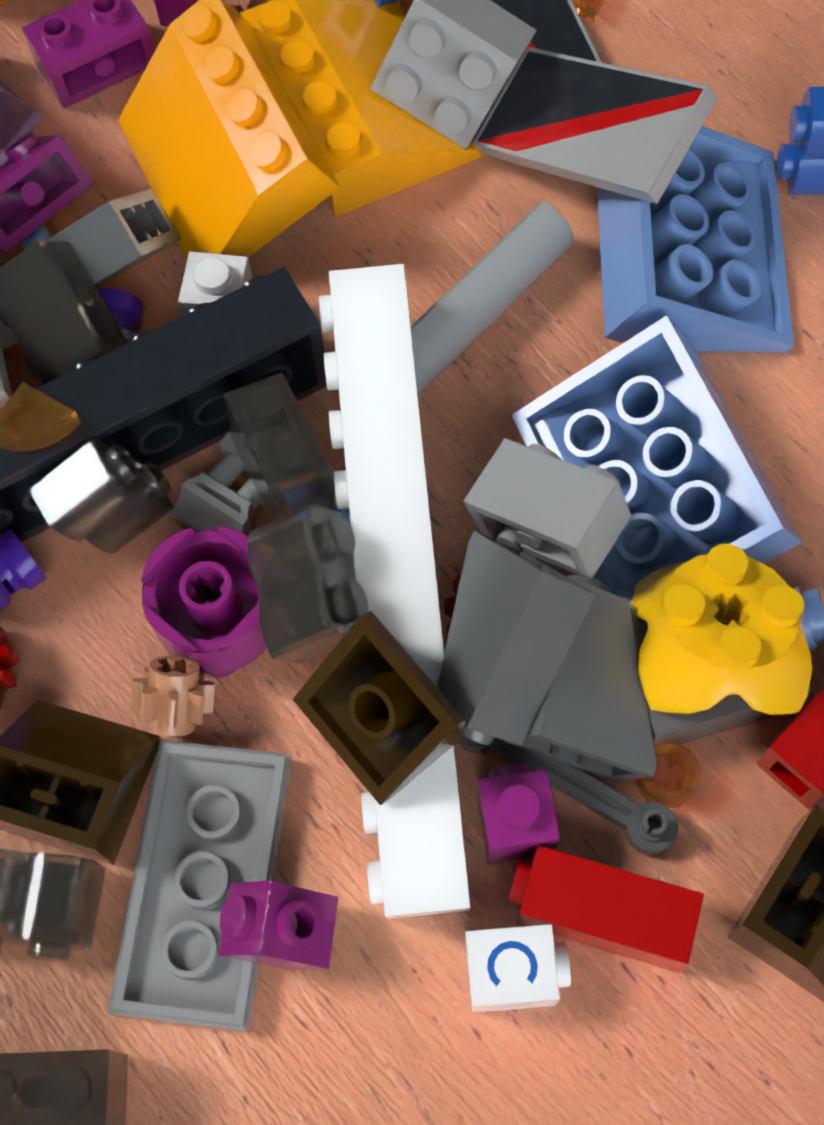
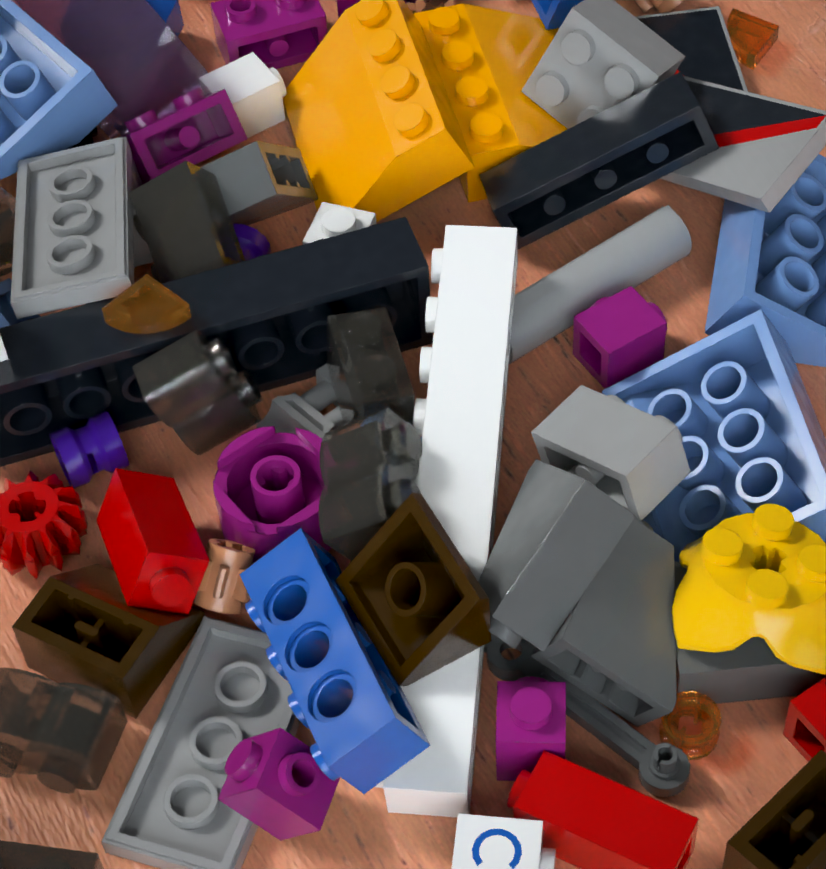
camera: 10 degrees right, 15 degrees down
(86, 125) = (253, 91): none -> white brick
(90, 677) = (152, 541): none -> red brick
(372, 856) = (332, 666): none -> blue brick
(467, 161) = (599, 160): none -> black brick
(520, 354) = (619, 336): none -> magenta brick

